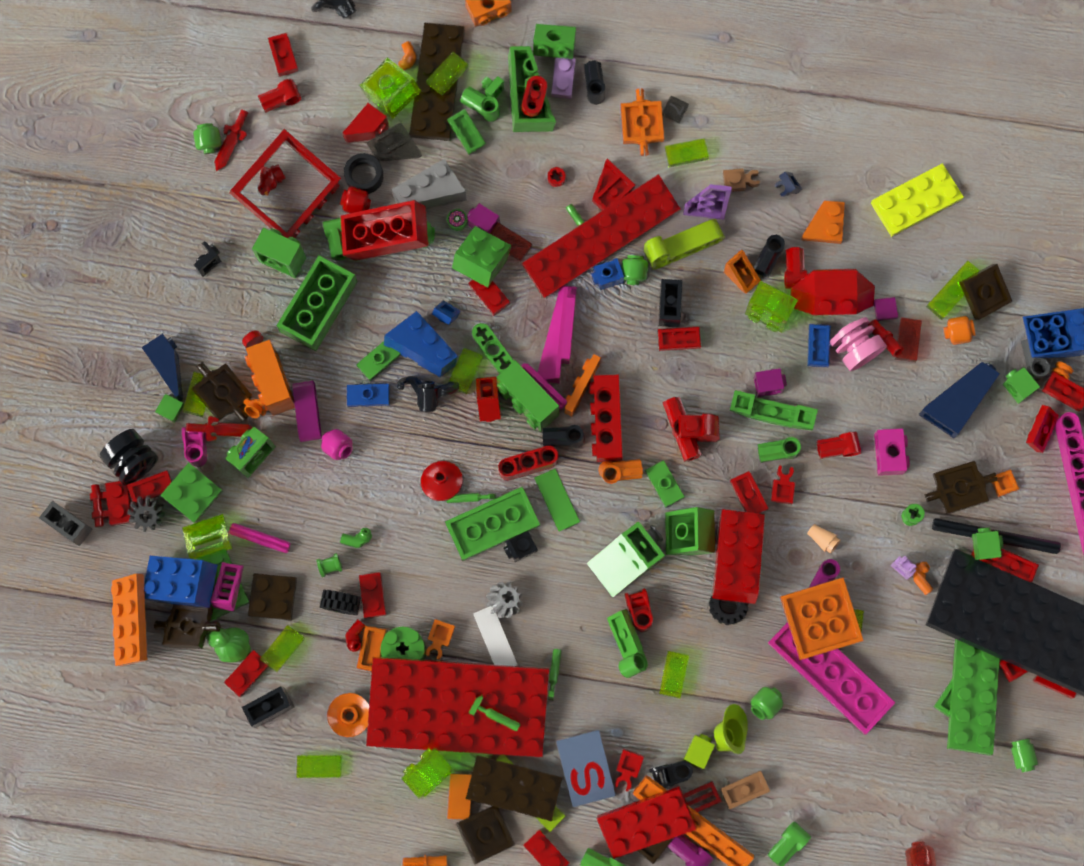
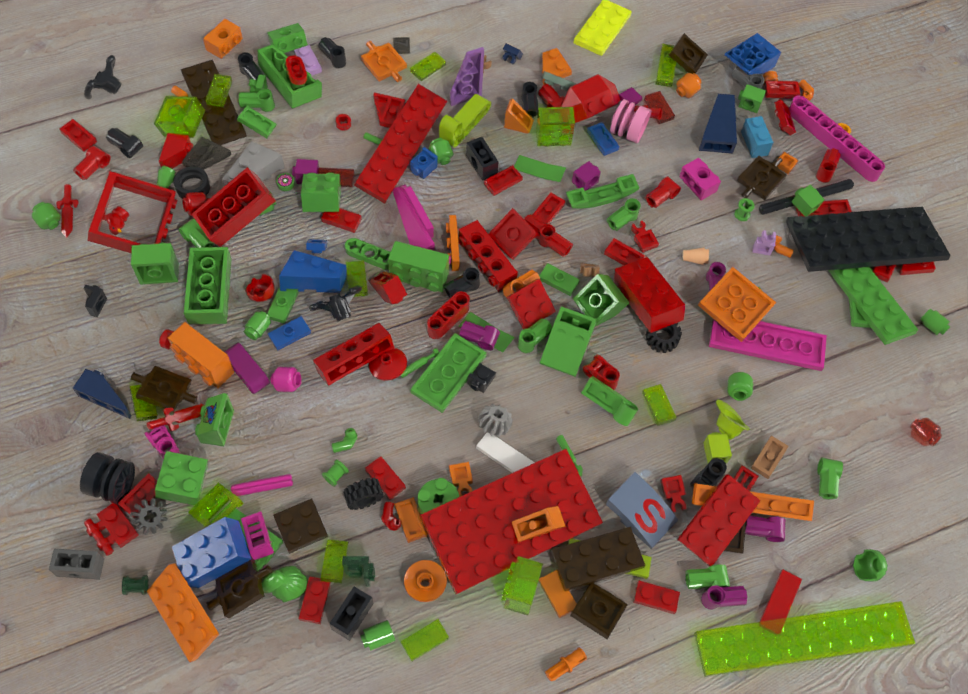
camera: 40 degrees left, 15 degrees down
(105, 569) = (135, 584): none -> clear green bush
(169, 408) = (123, 426): bright green tile -> none
(254, 408) = (199, 391): orange plate -> none
(280, 739) = (377, 635): none -> bright green brick
(296, 669) = (357, 566): none -> clear green bracket
(324, 90) = (127, 144): none -> black piece
(340, 154) = (165, 177): none -> bright green cone
(341, 371) = (257, 325): none -> bright green brick
(364, 333) = (260, 289): none -> red hair
(404, 460) = (353, 353): none -> red brick
(474, 728) = (538, 523): none -> orange slope
(494, 714) = (543, 505): bright green piece -> none
(496, 61) = (248, 66): none -> black piece
(548, 504) = (484, 336): none -> magenta piece
(601, 532) = (534, 334): none -> bright green piece
(615, 498) = (531, 304): none -> red plate
(647, 409) = (513, 233): none -> red plate
(699, 492) = (589, 270): none -> medium nougat plate
(703, 427) = (561, 224): red brick -> none
(704, 399) = (549, 208): none -> red plate
(728, 343) = (539, 168): none -> bright green sticker
(815, 248) = (551, 79): none -> sand green plate
(990, 436) = (757, 137): none -> dark azure brick
(1048, 512) = (828, 165): none -> red piece

